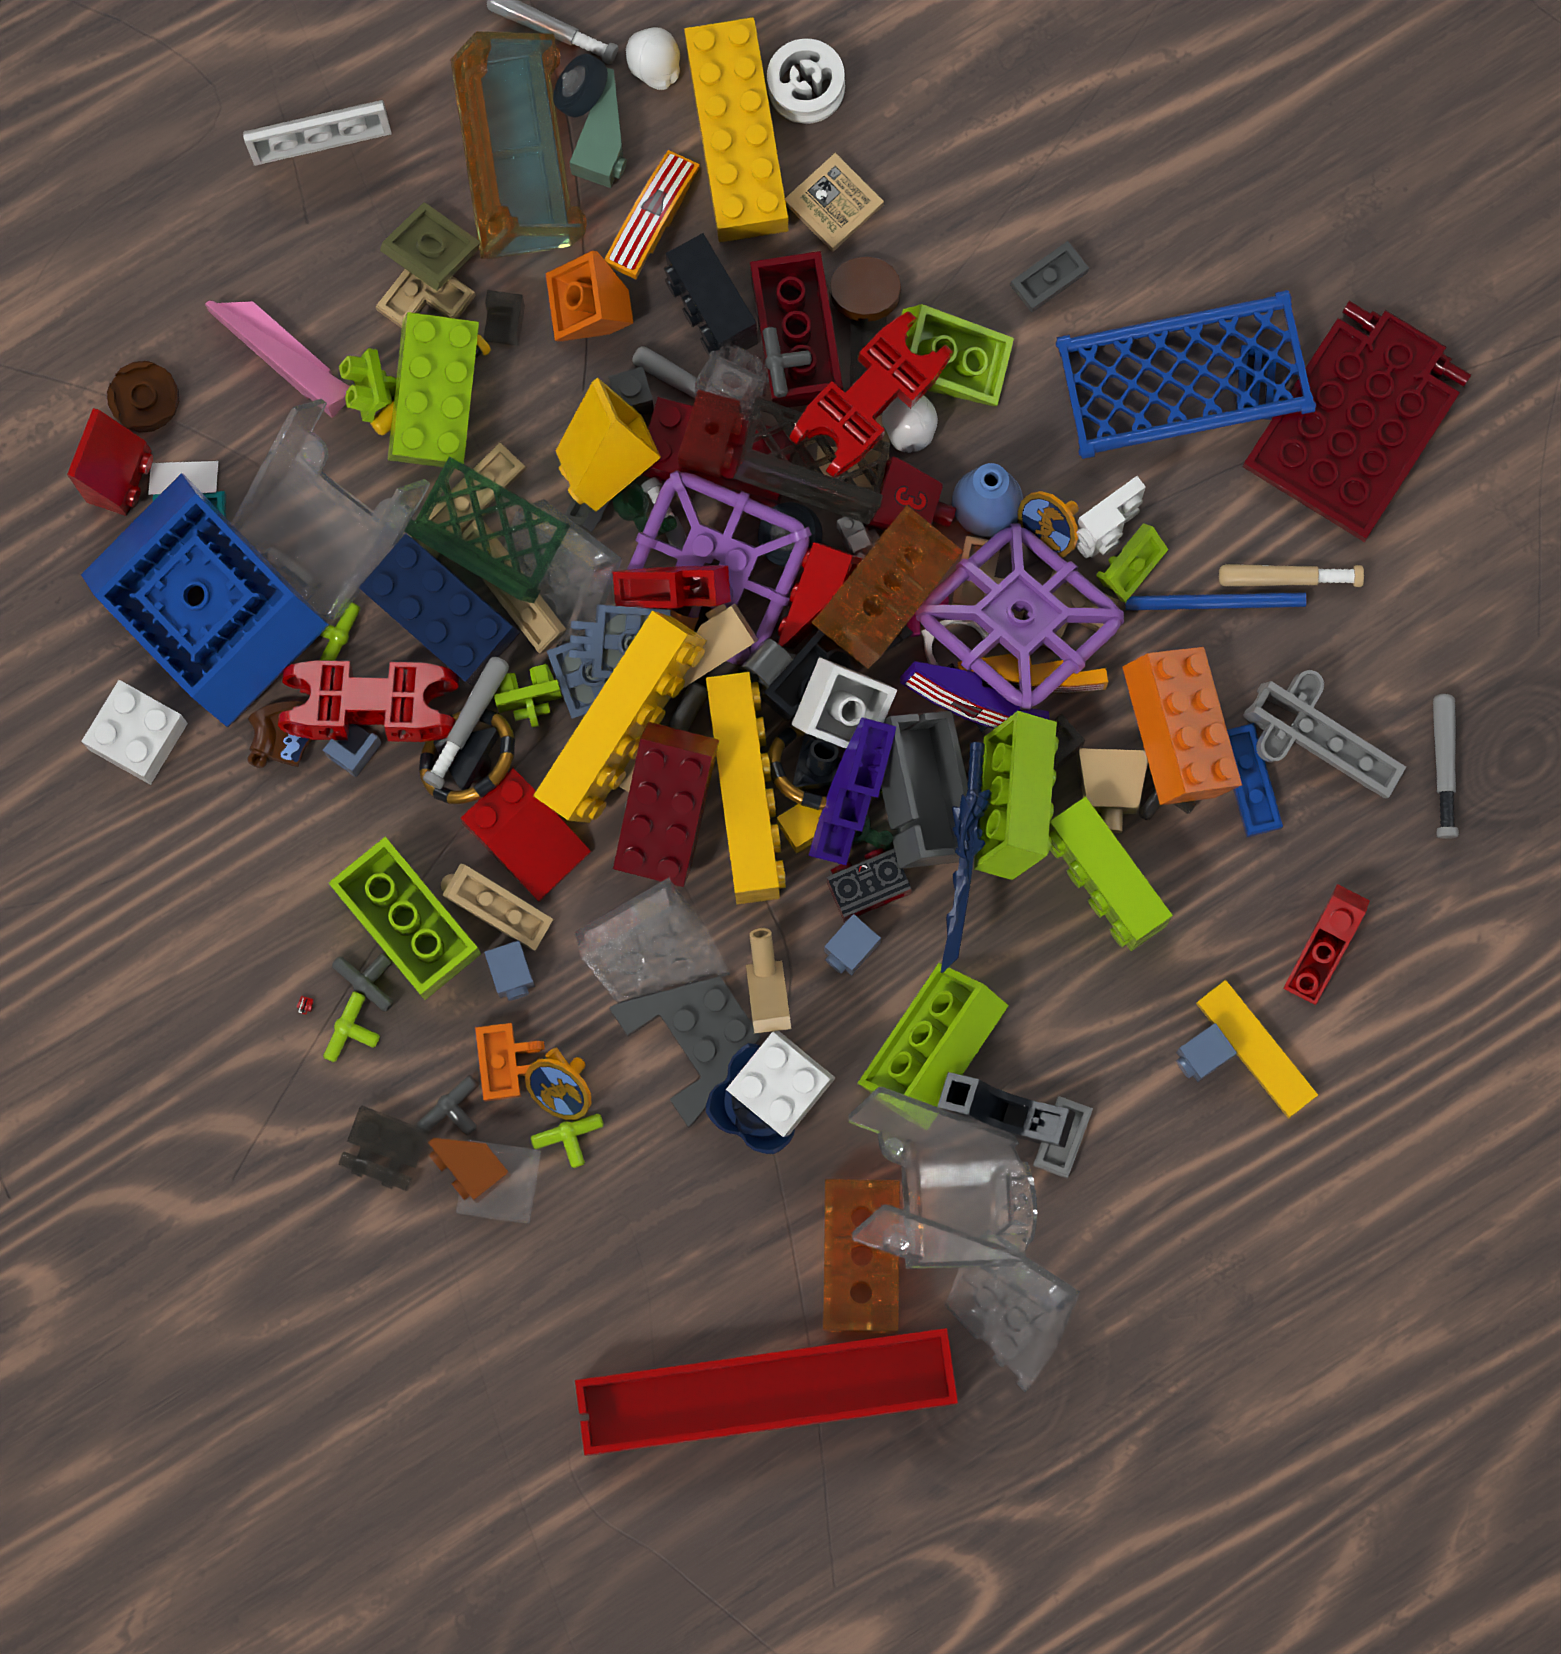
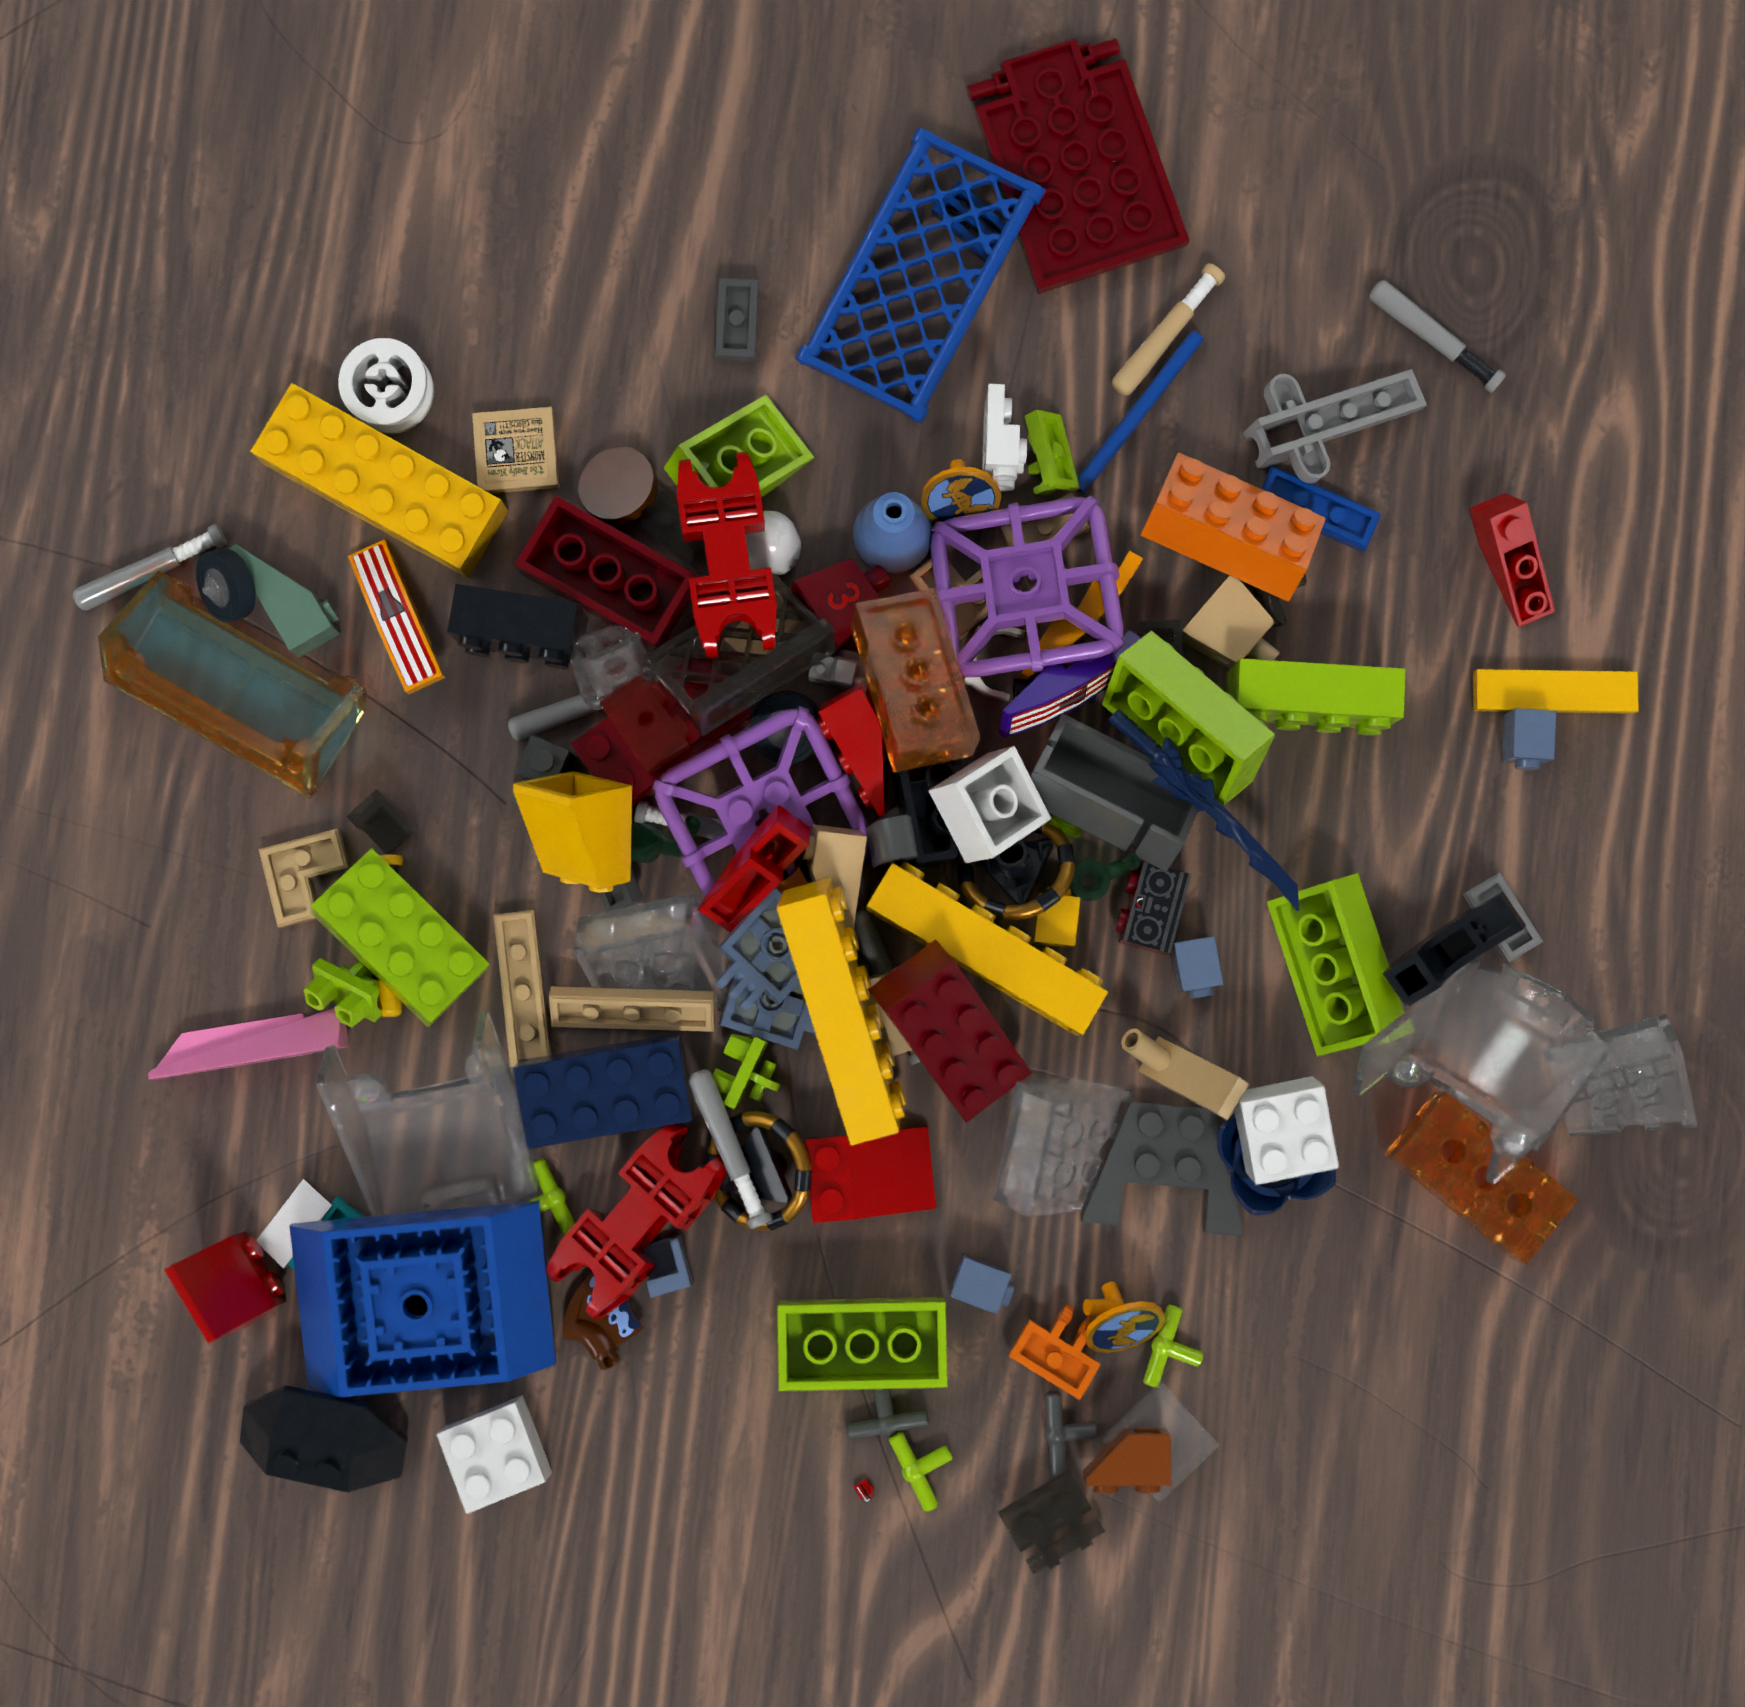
camera: 55 degrees left, 5 degrees up
(56, 610) = (321, 1439): none -> black wedge
(143, 396) = (188, 1200): reddish brown tile -> none
(317, 132) = (72, 853): white slope -> none
(430, 246) = (262, 835): olive plate -> none
(472, 557) = (582, 1025): clear green fence -> none
(496, 906) = (914, 1253): tan piece -> none
(587, 299) = (426, 734): orange slope -> none
(654, 57) = (253, 500): white hair -> none
(766, 1392) = (1535, 1358): red piece -> none
(777, 362) = (627, 613): dark grey piece -> none
(851, 790) = (1066, 853): dark purple slope -> none

